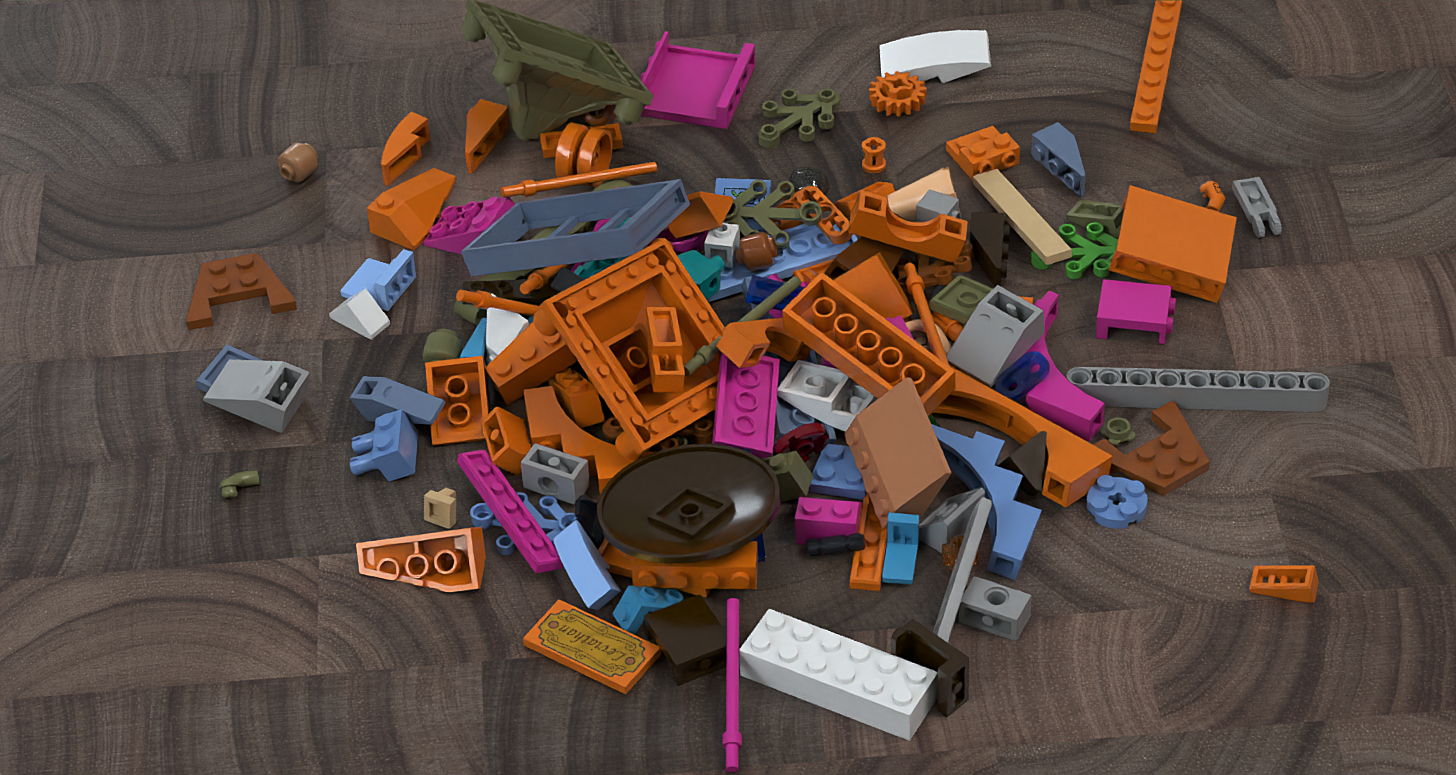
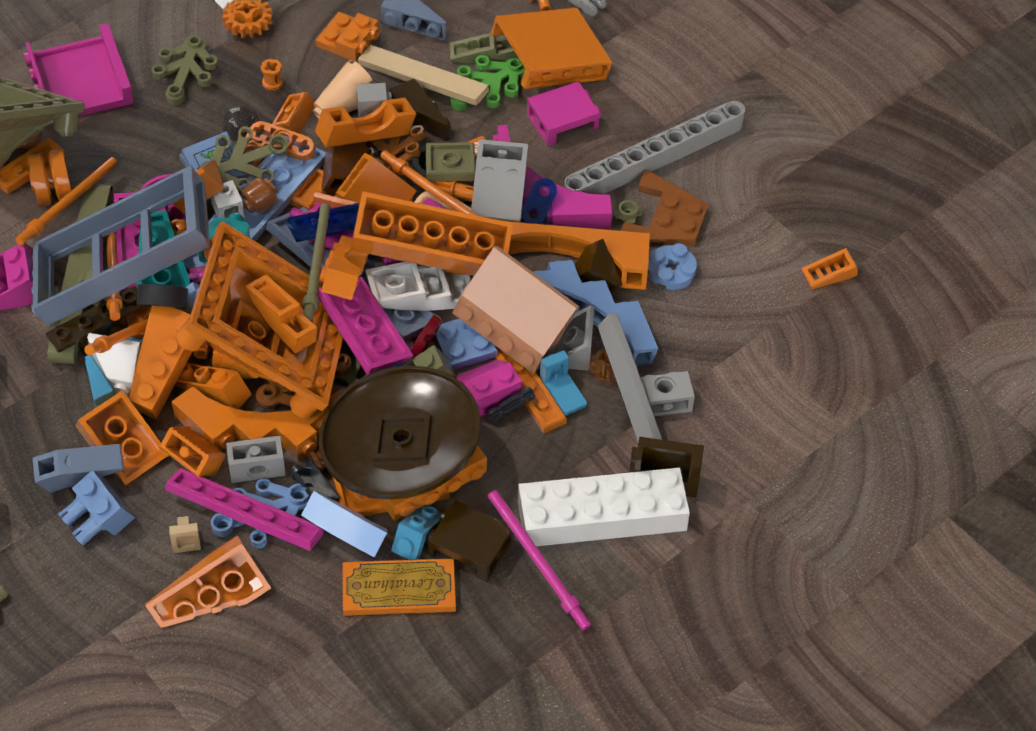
camera: 40 degrees left, 10 degrees up
(442, 345) = (69, 400): olive head -> none

